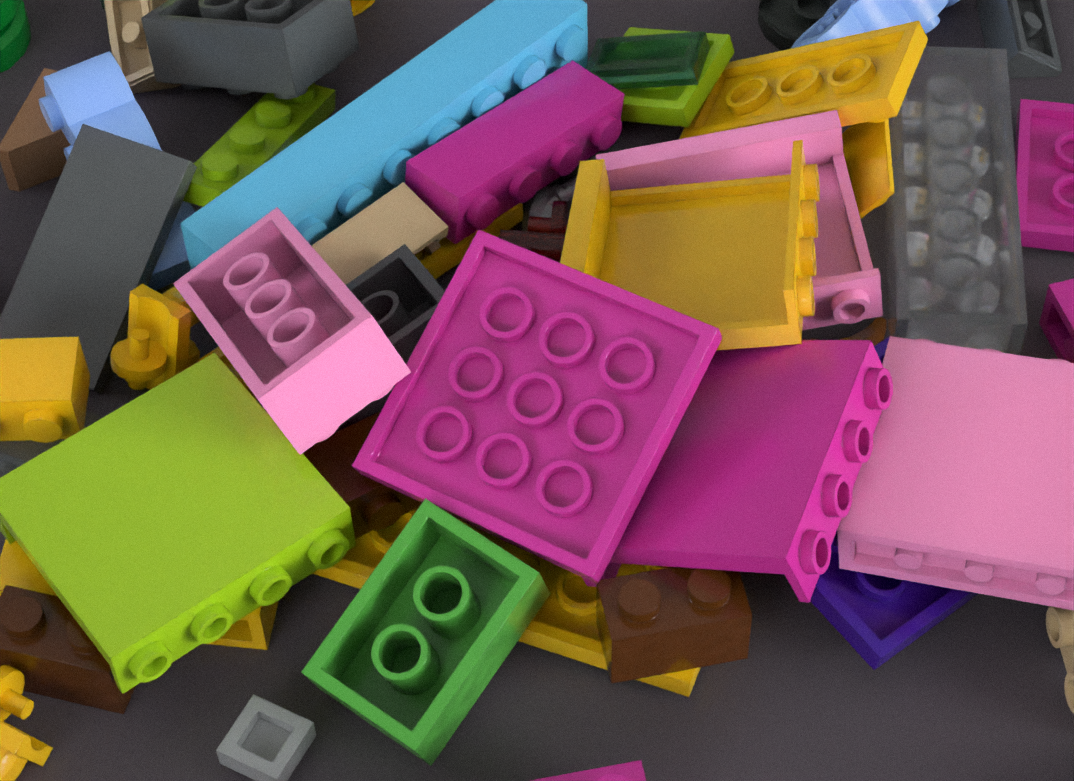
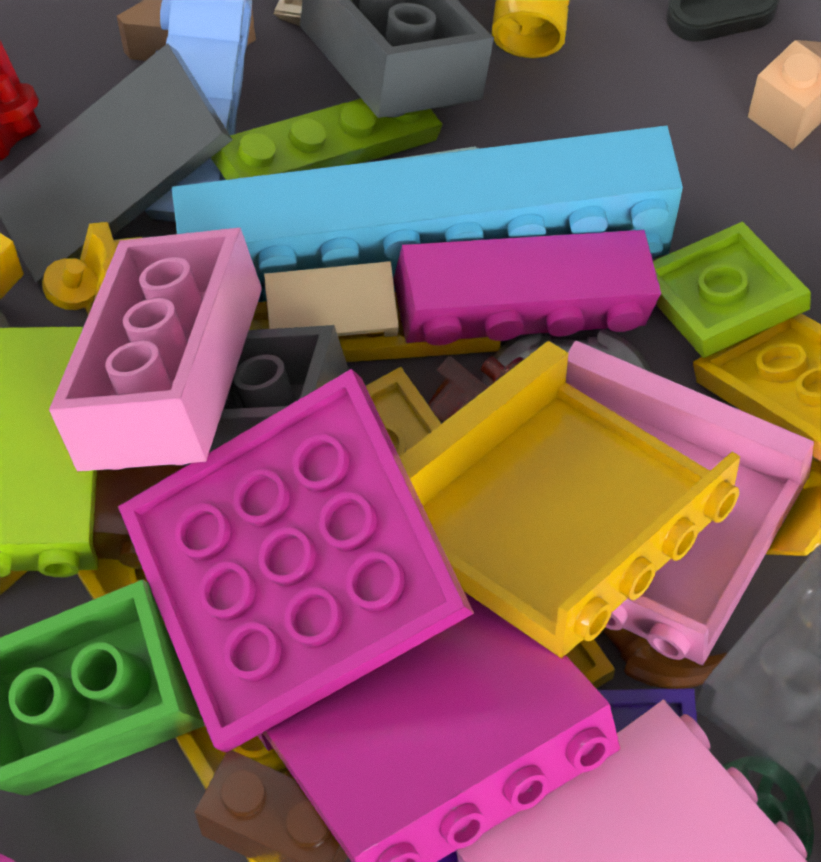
camera: 35 degrees right, 10 degrees up
(650, 60) = (716, 270): clear green tile -> none

